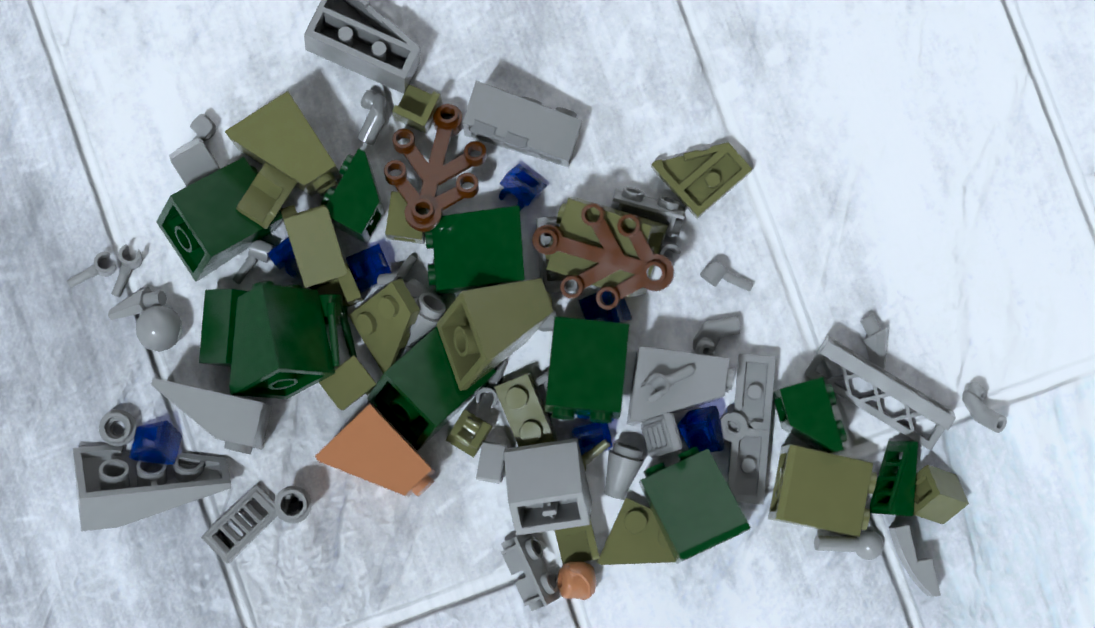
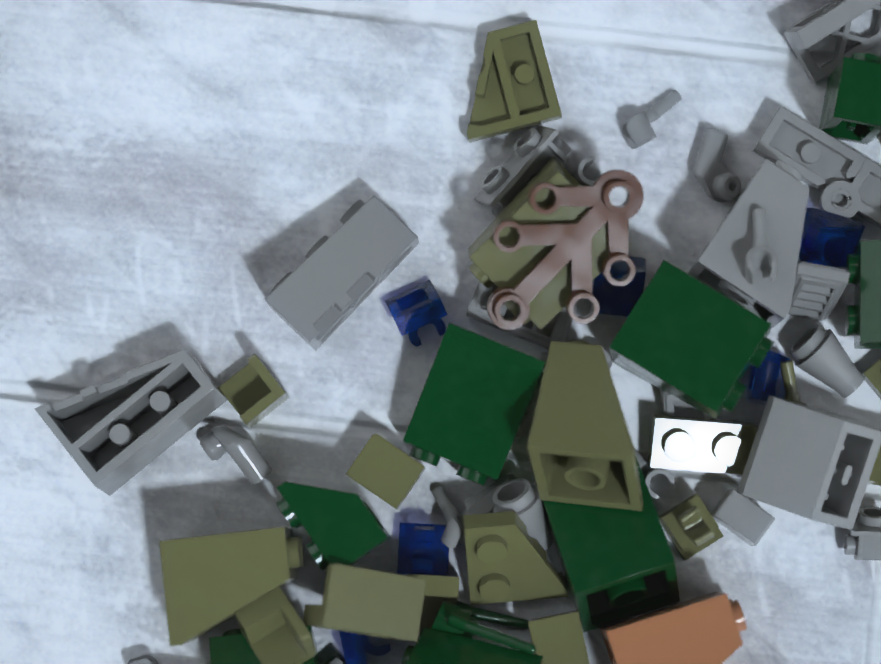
camera: 55 degrees left, 0 degrees up
(434, 172) = (348, 409): reddish brown plant -> none

